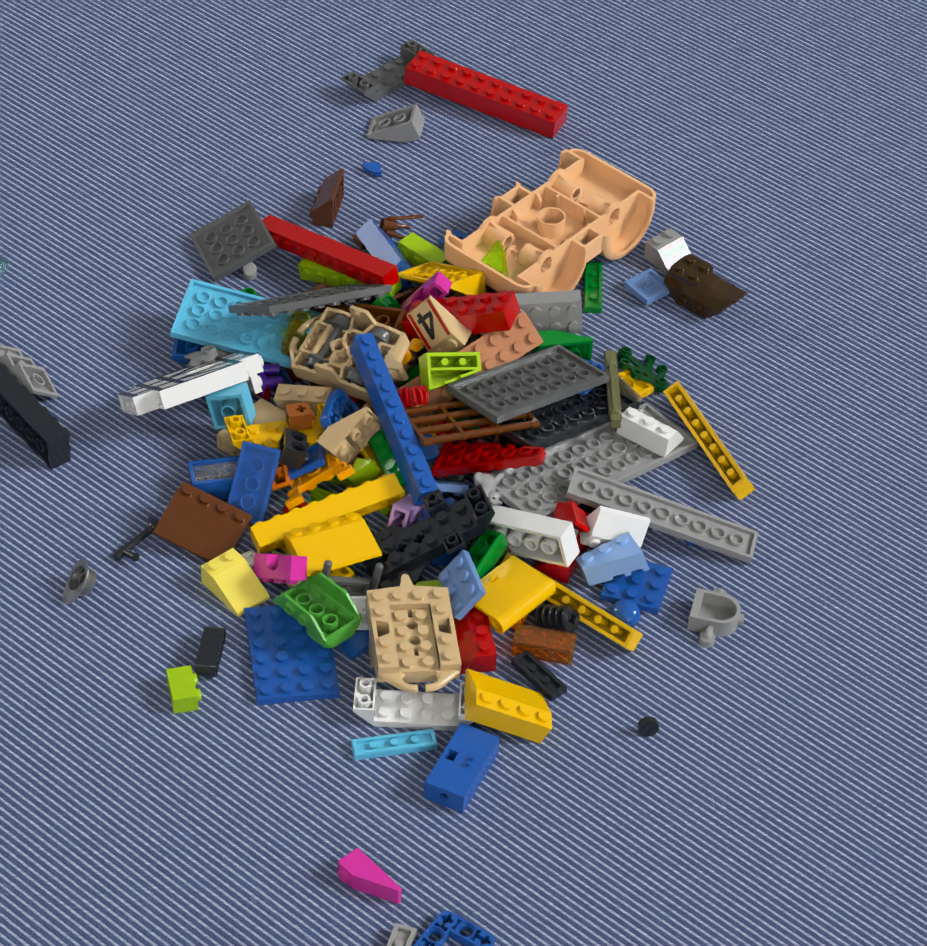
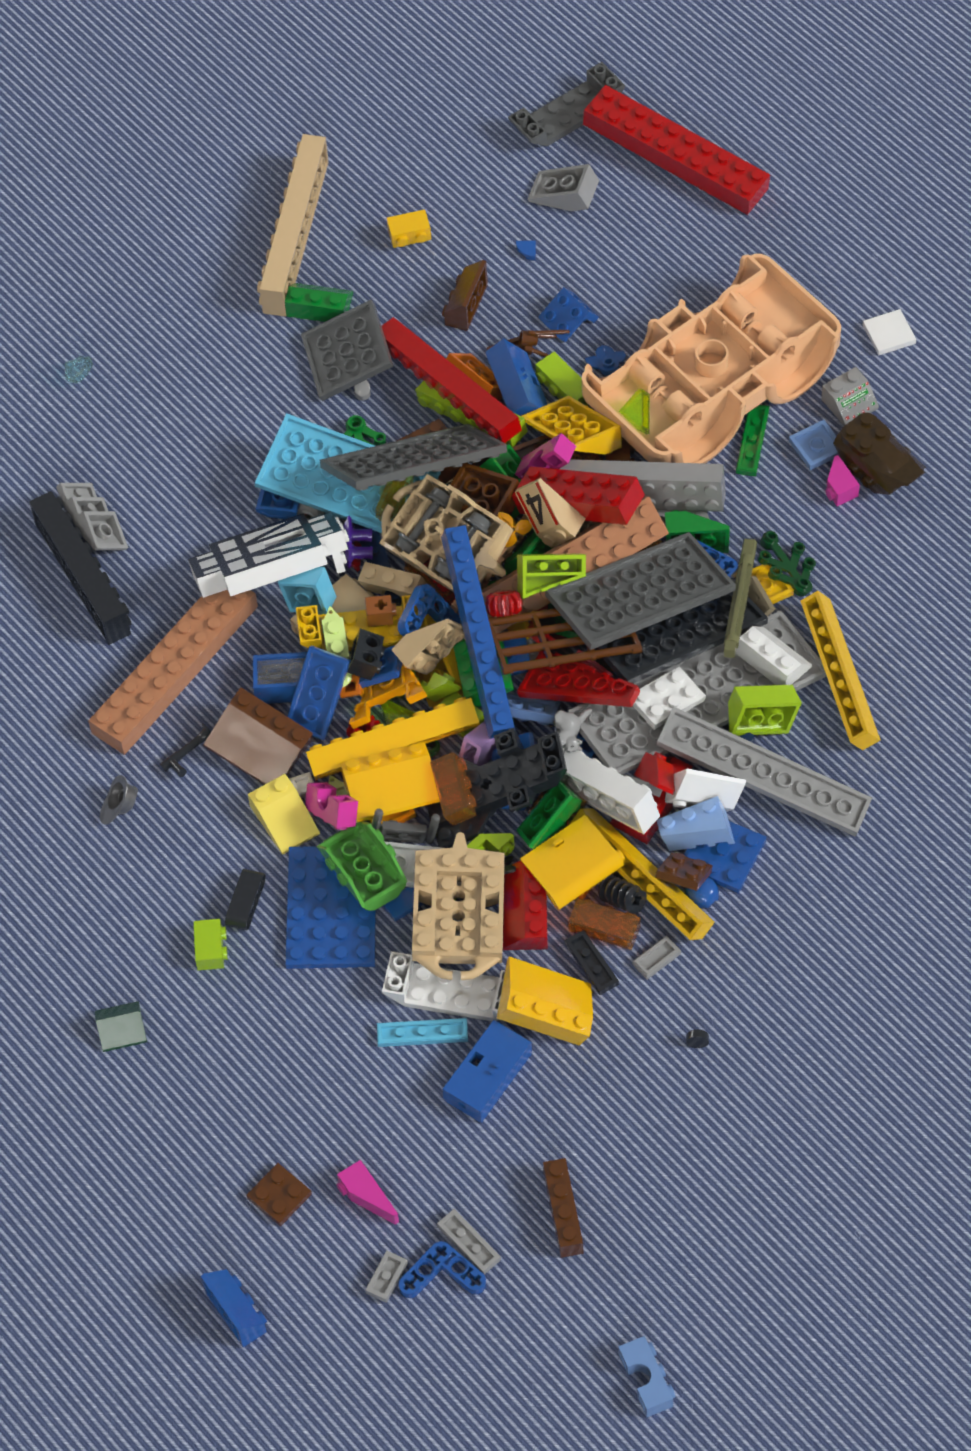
camera: 15 degrees right, 15 degrees up
(108, 763) = (120, 1026): none -> slope
(113, 478) = (170, 668): none -> nougat brick
(170, 159) = (293, 224): none -> tan brick
(197, 212) = (316, 302): none -> green slope
(206, 355) = (287, 515): light grey plate -> none
(262, 435) = (335, 637): none -> yellowish green plate
(270, 157) = (409, 228): none -> yellow brick
(282, 888) = (279, 1194): none -> reddish brown plate
(391, 542) = (453, 788): none -> clear orange brick
(417, 204) = (566, 313): none -> blue bracket
(463, 584) = (521, 849): medium blue plate -> none
(471, 908) = (469, 1241): none -> light grey plate
(555, 872) = (563, 1207): none -> reddish brown brick
(560, 463) = (665, 692): none -> white plate
(596, 668) = (656, 957): none -> light grey tile
(614, 595) = (684, 871): none -> reddish brown plate
(651, 468) = (762, 709): none -> lime slope
(676, 312) = (841, 483): none -> dark pink slope
(689, 208) = (889, 332): none -> white tile
(714, 615) = (799, 902): light grey piece -> none

